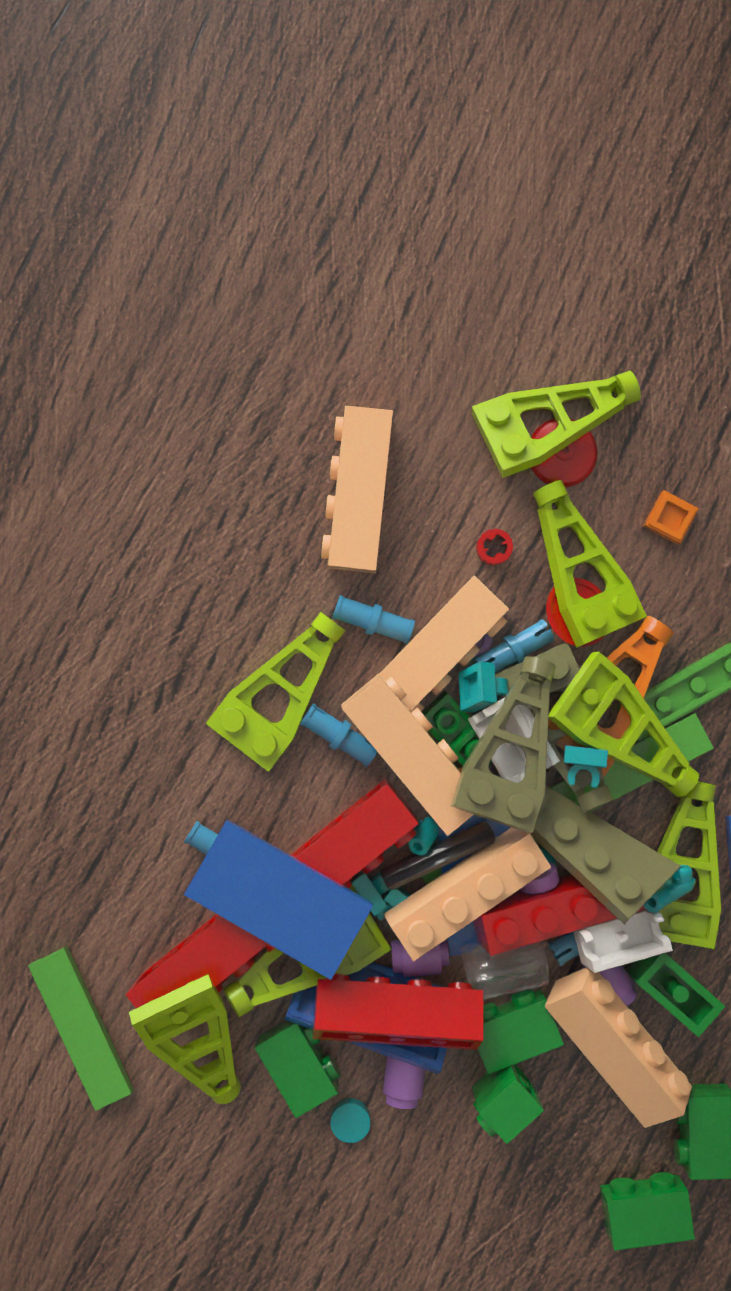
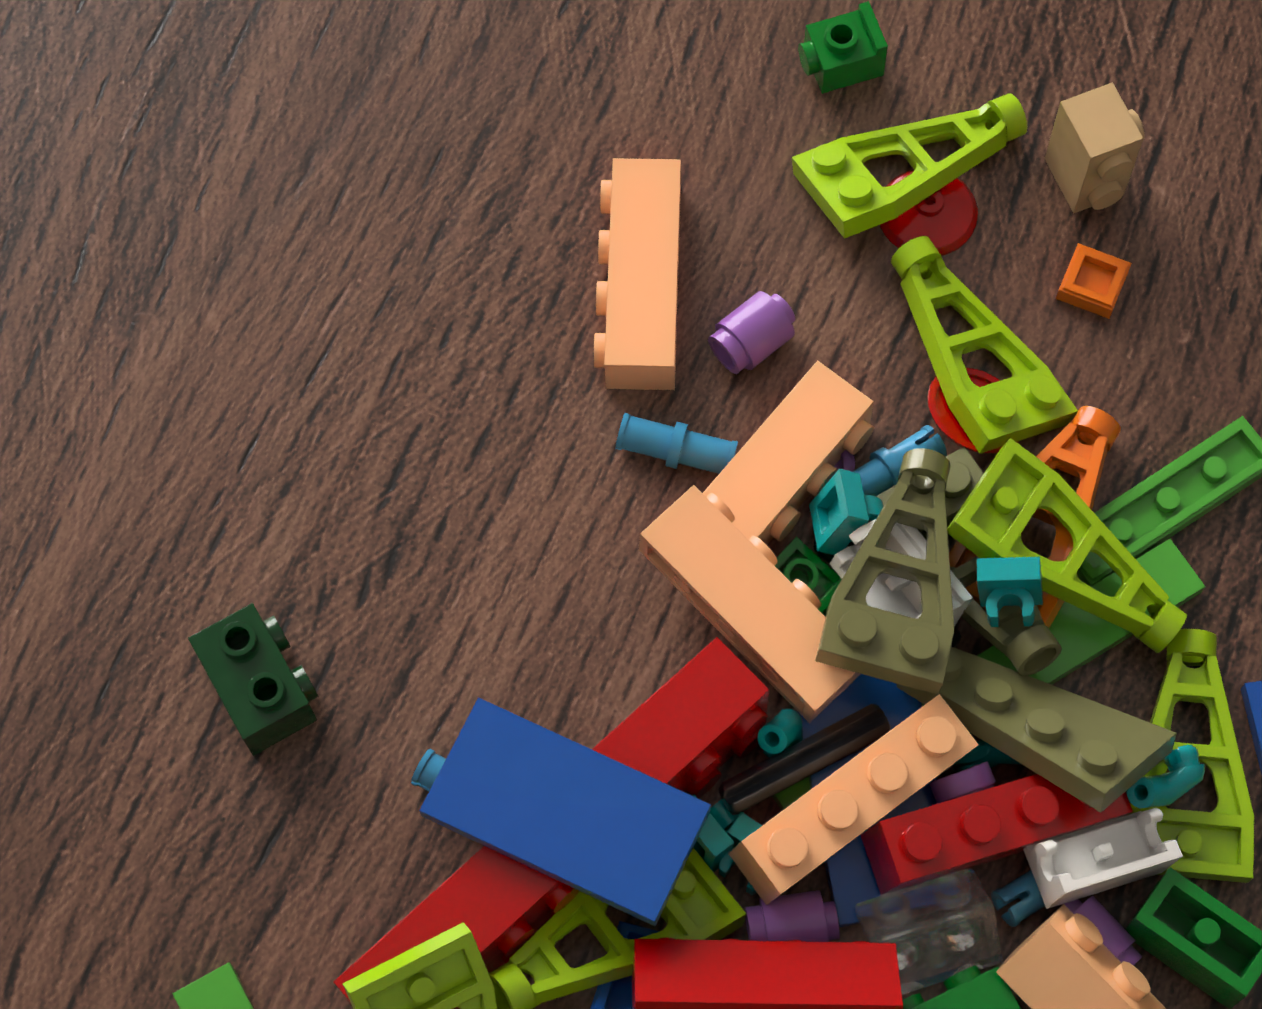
camera: 10 degrees left, 20 degrees down
(83, 763) = (254, 679): none -> dark green brick
(249, 729) = (509, 619): lime plate -> none
(339, 735) = (639, 609): dark azure pin -> none
(432, 541) = (752, 332): none -> medium lavender brick
(499, 558) = (833, 324): red bush -> none
(509, 336) = (844, 49): none -> green brick
(687, 426) = (1094, 148): none -> tan brick

